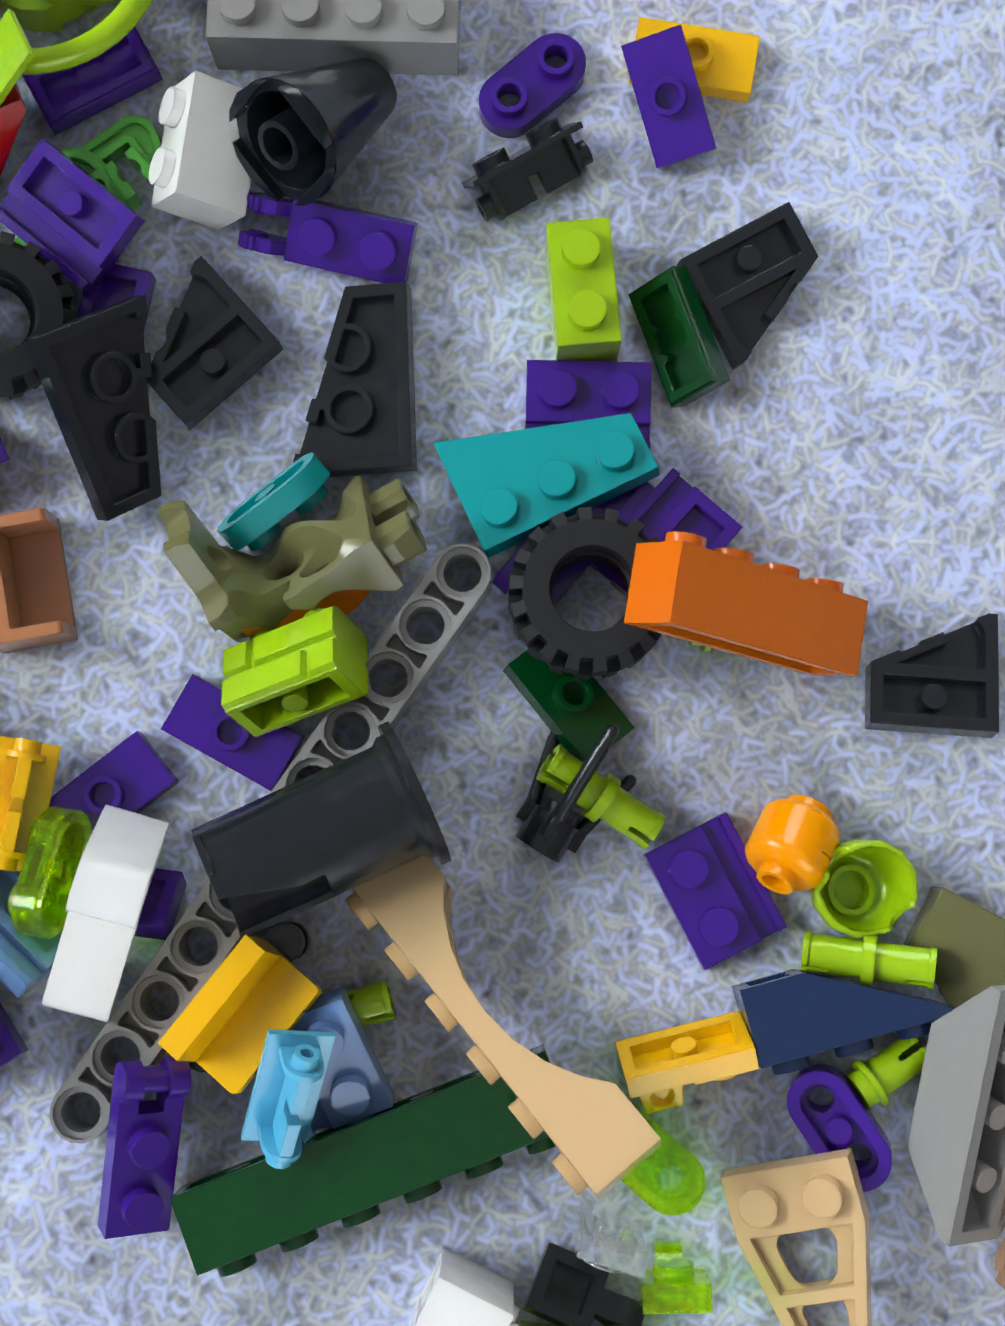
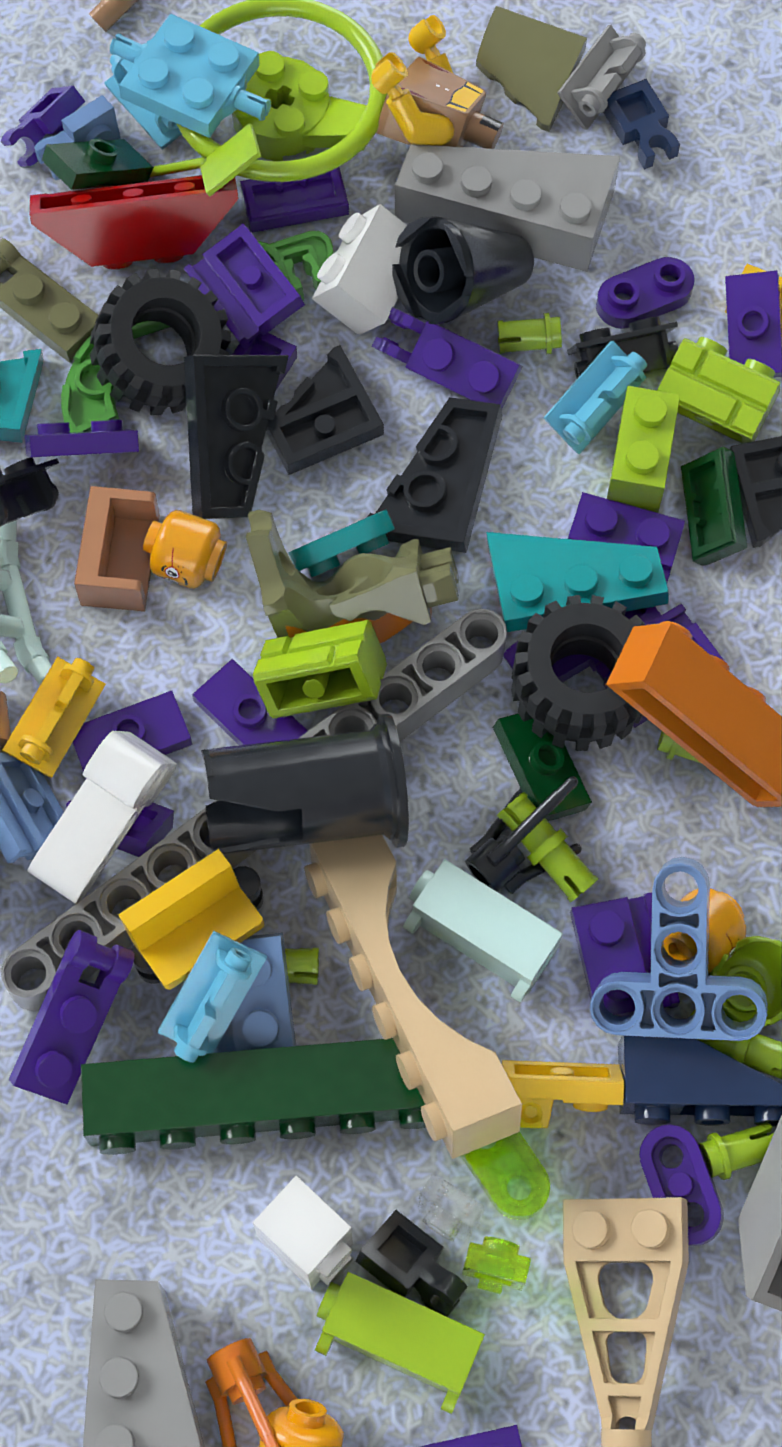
camera: 15 degrees right, 15 degrees down
(48, 871) = (61, 773): clear neon green plate -> none
(99, 559) = (185, 549): none -> light orange head
(415, 178) = (530, 334): none -> lime pin
(511, 237) = (596, 396): none -> medium azure hinge
(556, 907) = (483, 926): none -> light aqua brick
(651, 192) = (720, 390): none -> lime brick
(787, 920) = (683, 976): none -> medium blue beam

